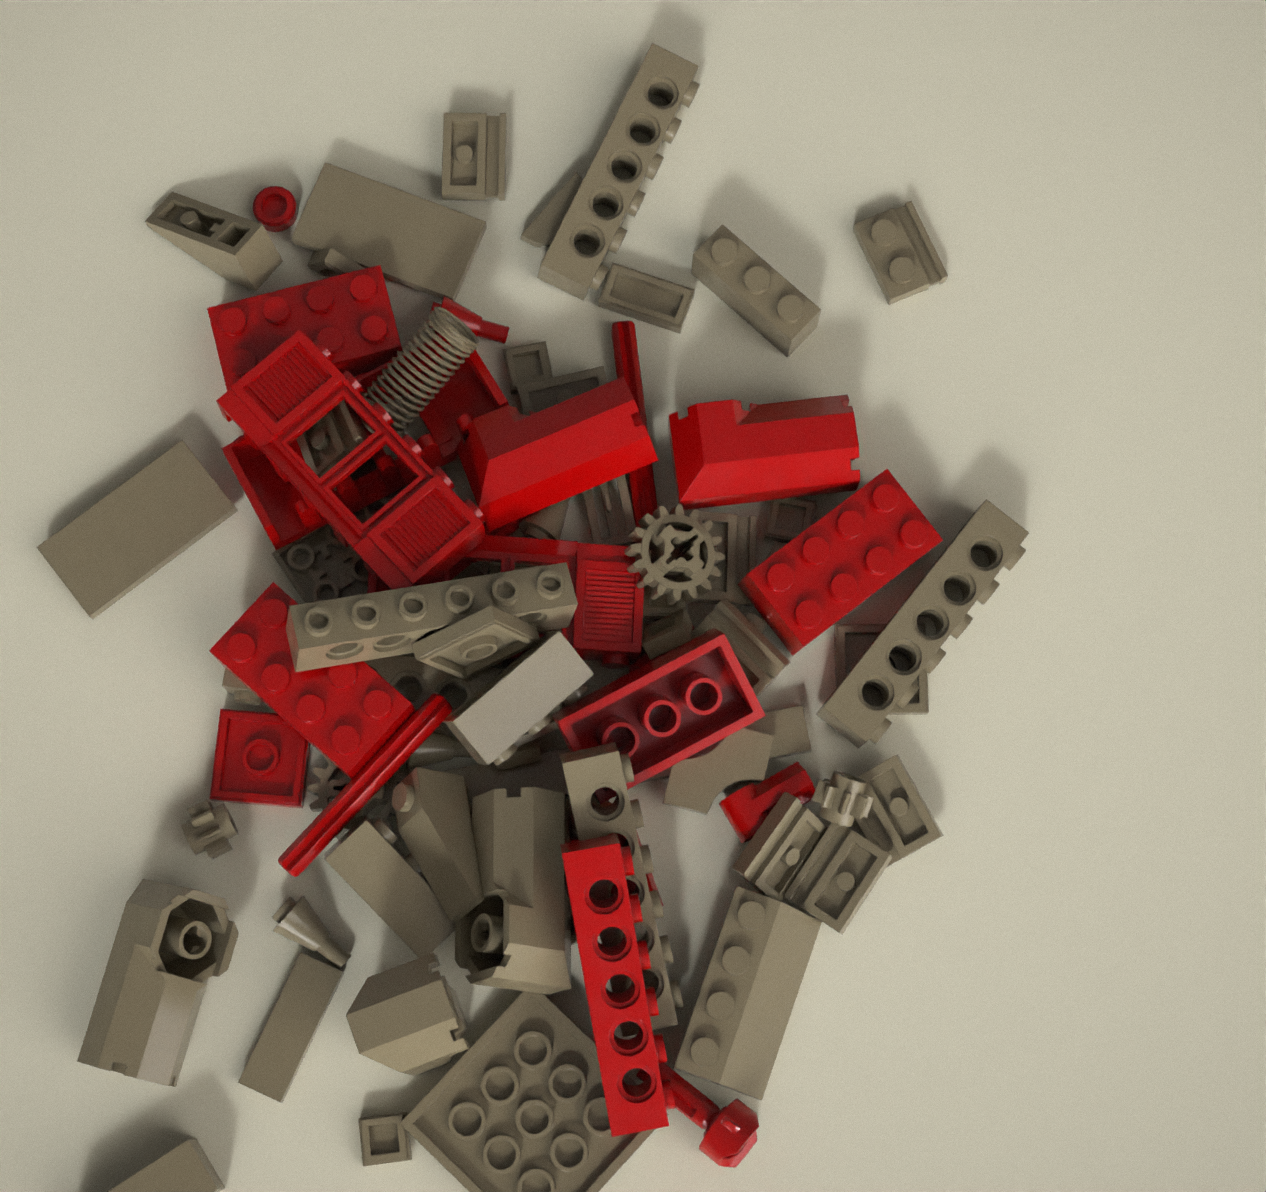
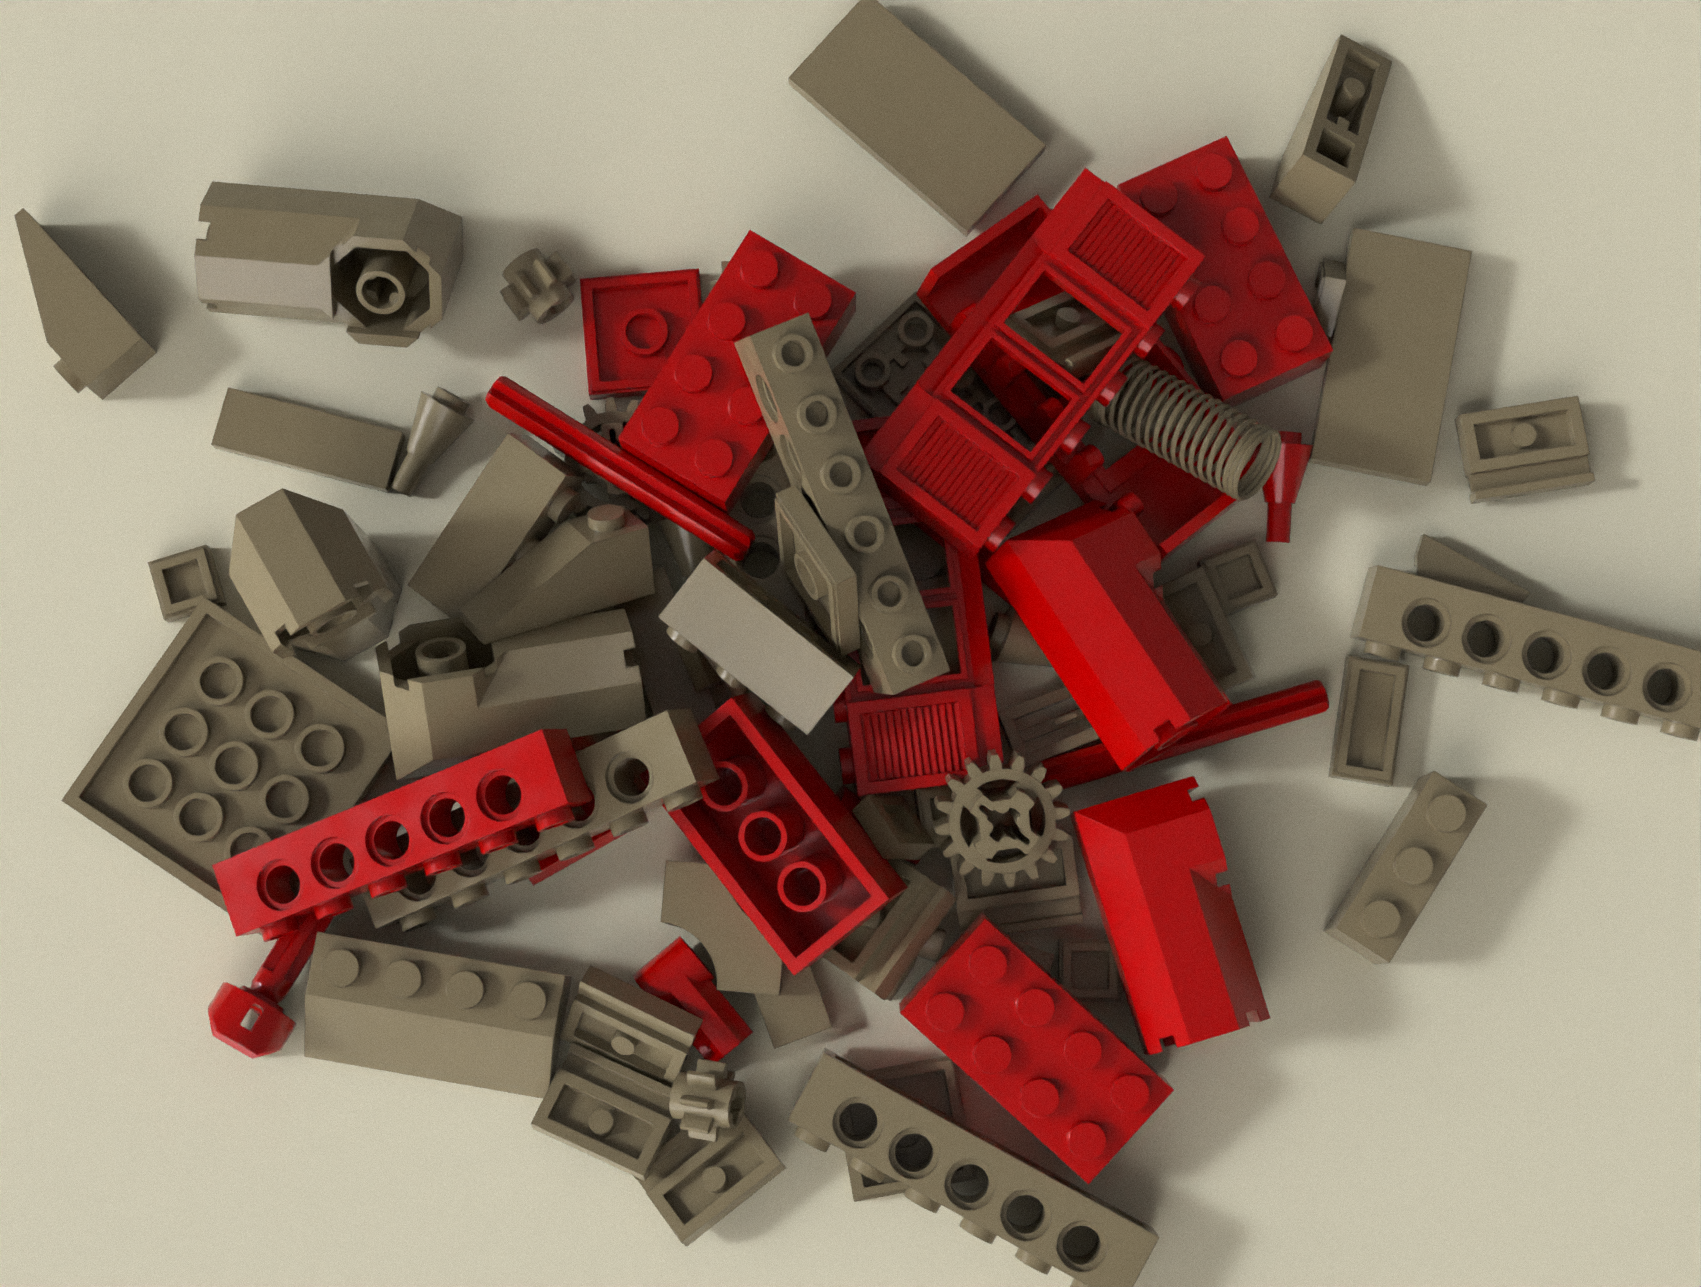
camera: 80 degrees right, 5 degrees up
(275, 208) = (1395, 200): red tile -> none
(900, 252) = (1507, 1065): dark tan plate -> none

